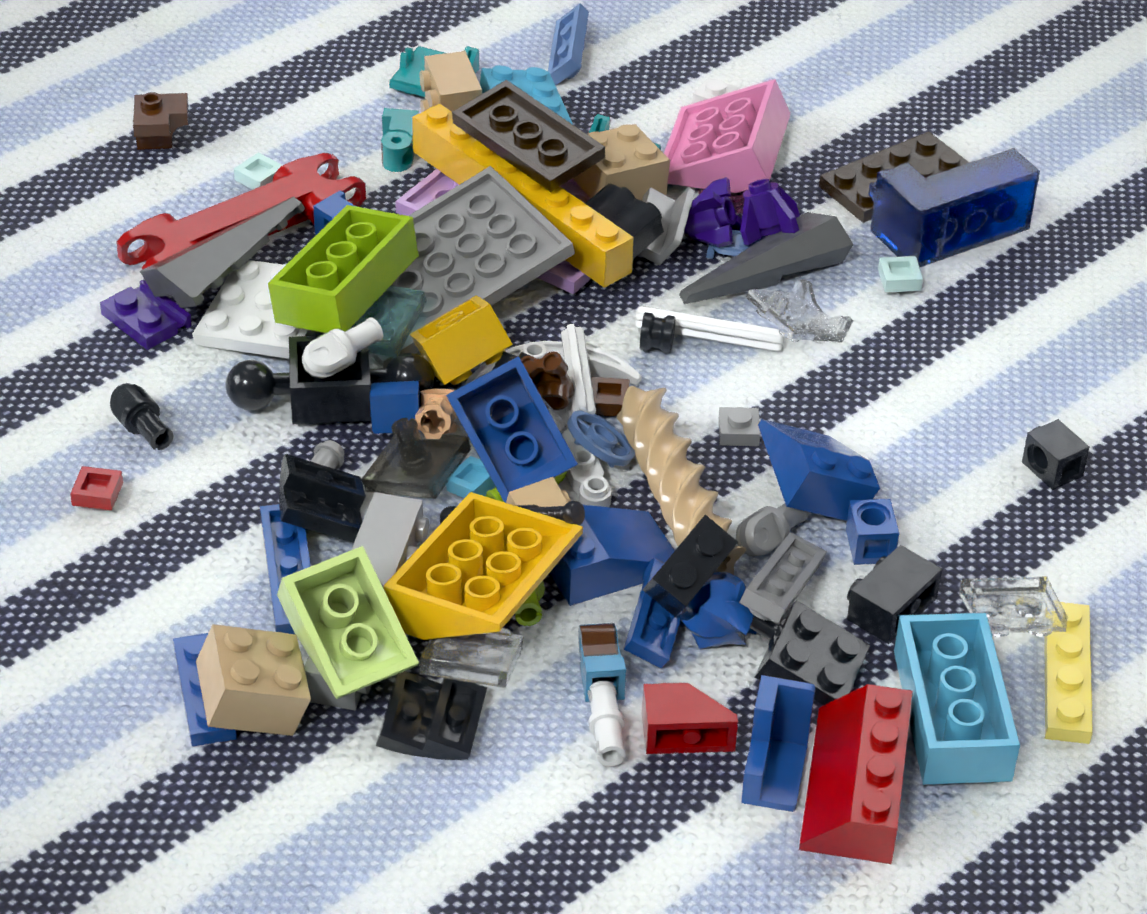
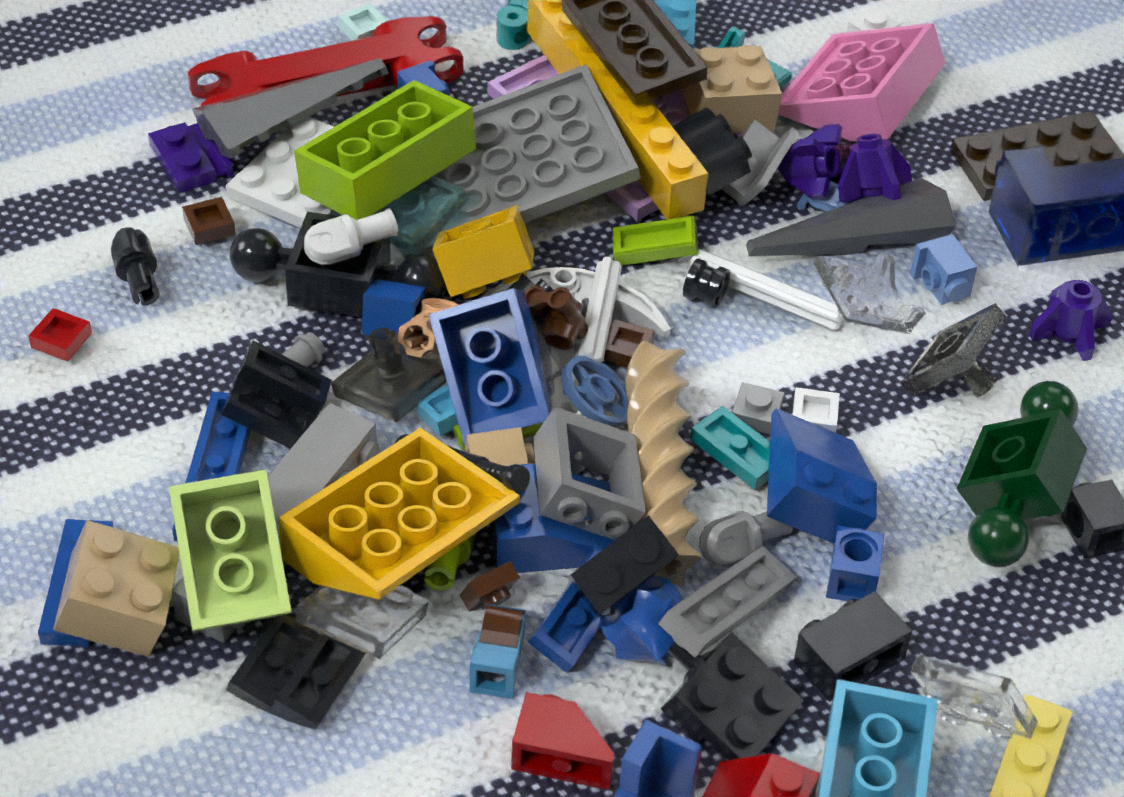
camera: 15 degrees right, 5 degrees up
(190, 366) = (208, 220): none -> reddish brown plate
(573, 613) = (490, 587): none -> reddish brown plate
(599, 306) = (655, 240): none -> lime tile
(606, 723) = (476, 725): white pin -> none
(607, 482) = (597, 446): none -> light grey window
(735, 459) = (734, 446): none -> teal plate
(791, 413) = (817, 407): none -> white plate
(855, 282) = (944, 268): none -> medium blue brick
(893, 346) = (956, 353): none -> clear smoke tile
(900, 274) = (999, 269): light aqua plate -> none
(976, 299) = (1073, 315): none -> dark purple brick
(984, 428) = (1021, 472): none -> dark green brick

